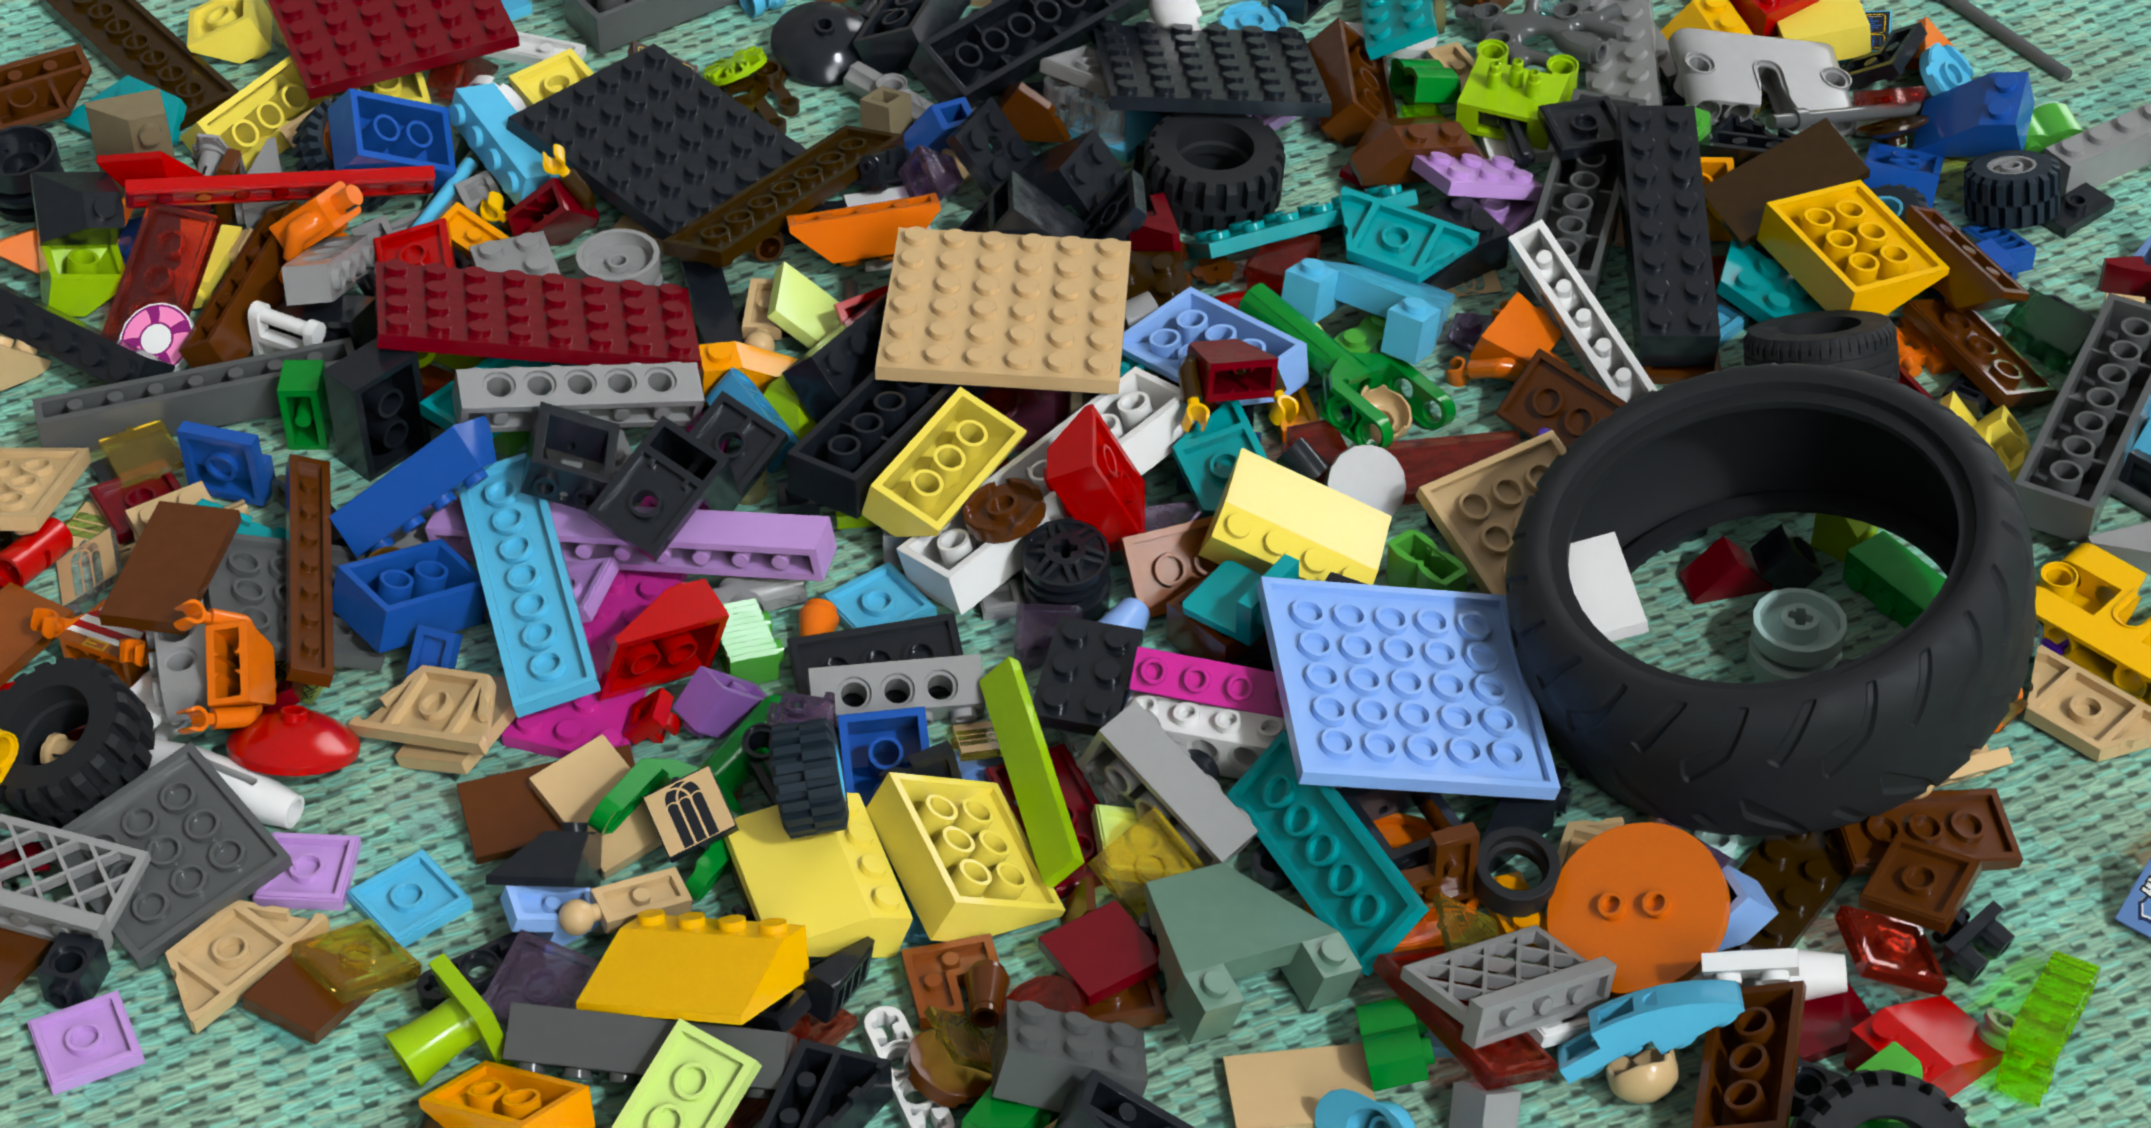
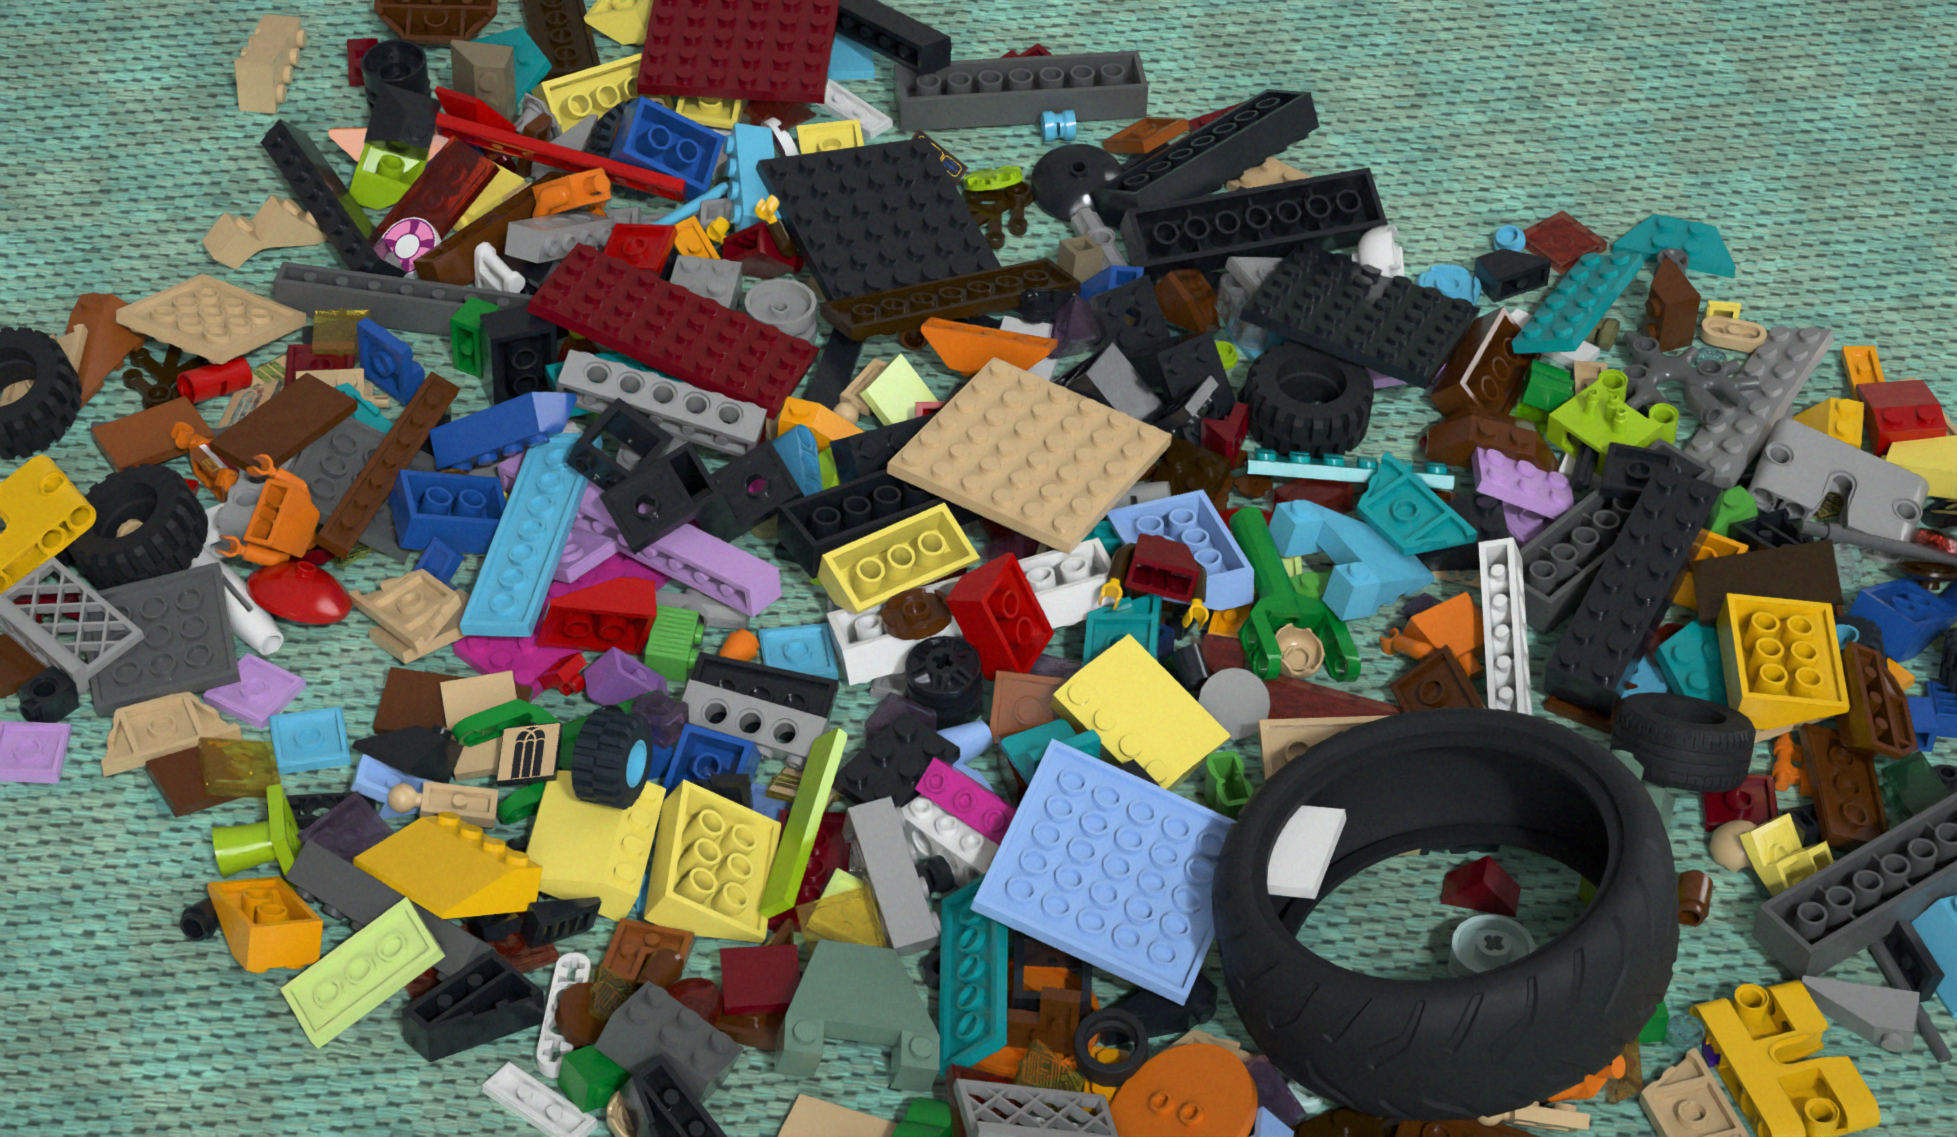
camera: 25 degrees right, 0 degrees up
(1786, 559) = (1533, 896): black brick -> none

